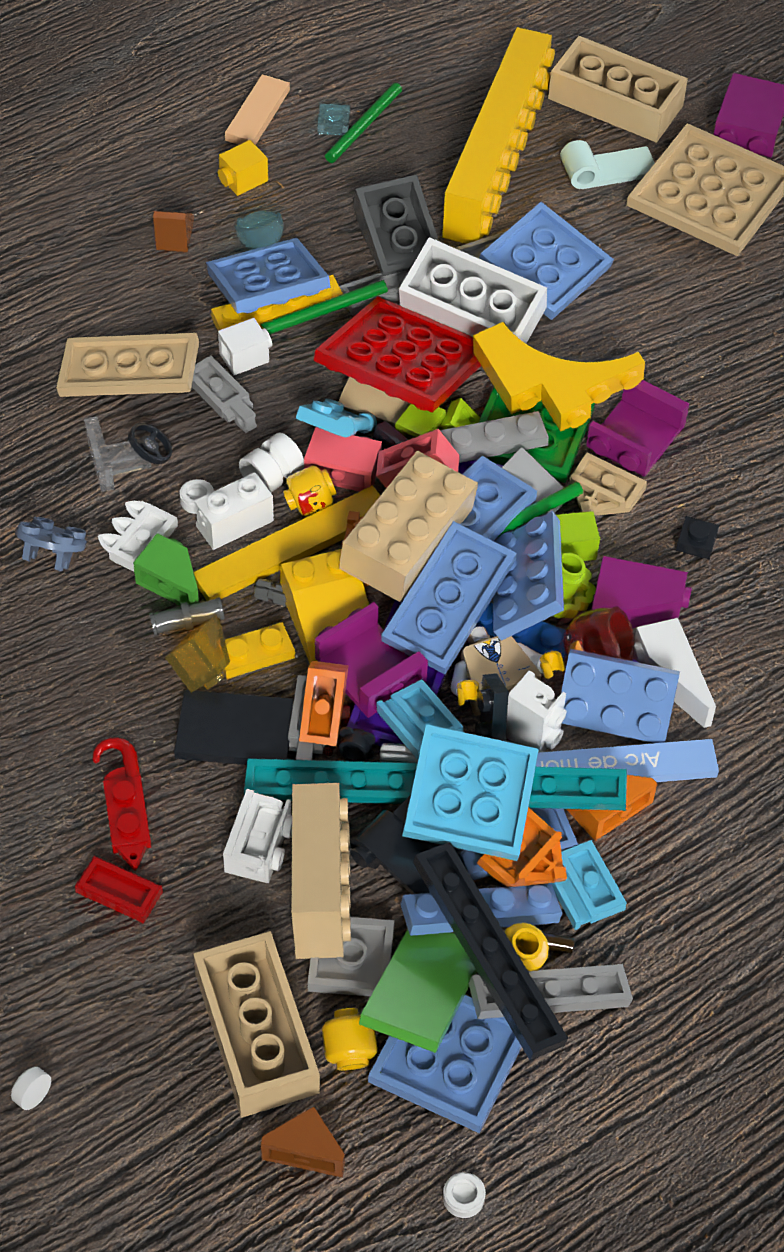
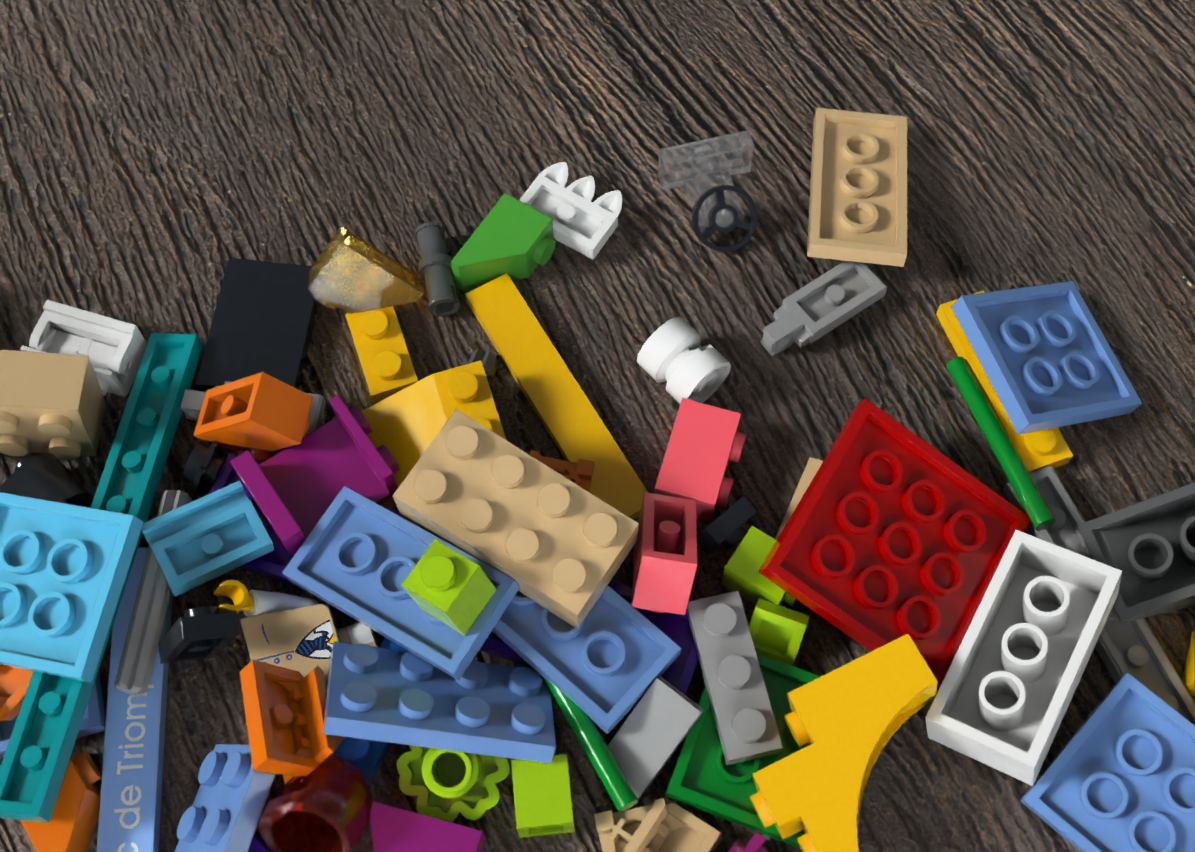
camera: 95 degrees right, 10 degrees up
(45, 535) = (544, 99): sand blue plate -> none
(118, 889) = (55, 209): red tile -> none
(125, 803) = (170, 212): red plate -> none
(172, 230) = (1141, 238): dark orange slope -> none
(191, 491) = (643, 282): white tile -> none
(234, 510) = (601, 316): white hinge -> none
(244, 346) = (910, 331): white brick -> none
(260, 229) = (1149, 350): clear light blue hair -> none
(309, 490) = (640, 415): yellow head -> none
(332, 418) = (770, 434): medium azure plate -> none
(466, 543) = (449, 586): none -> lime brick
(535, 714) = (192, 699): white hinge -> none
(549, 640) = (286, 718): none -> orange slope

